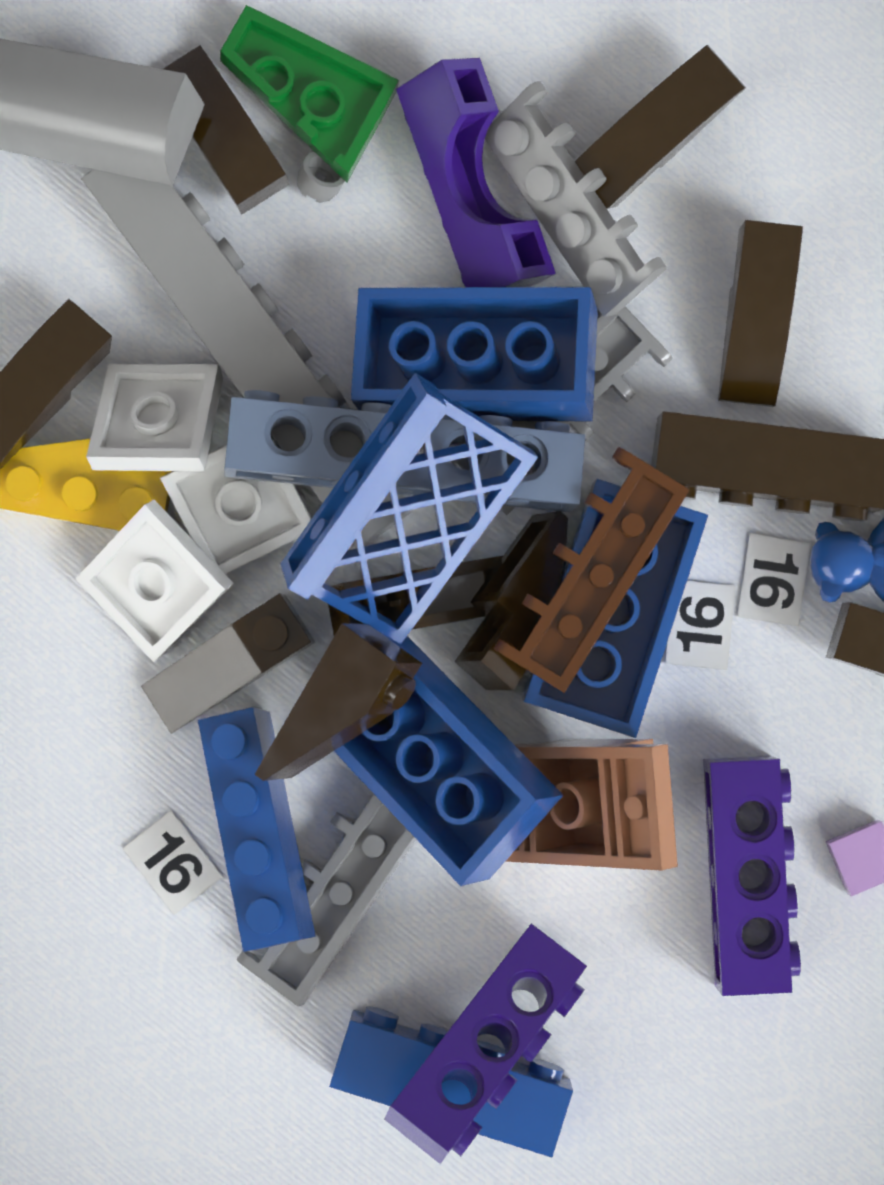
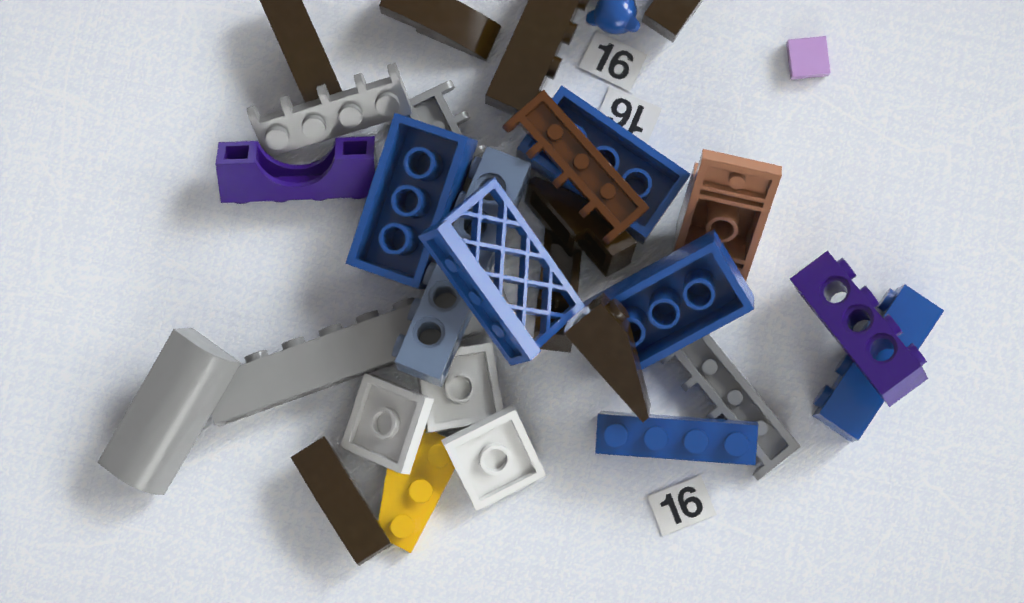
camera: 90 degrees left, 5 degrees down
(228, 662) = (562, 426): slope -> none
(229, 136) = (216, 320): dark brown slope -> none
(310, 86) = (199, 258): green wing -> none
(313, 187) = (266, 264): light grey hinge -> none
(738, 966) = (858, 133): dark purple brick -> none

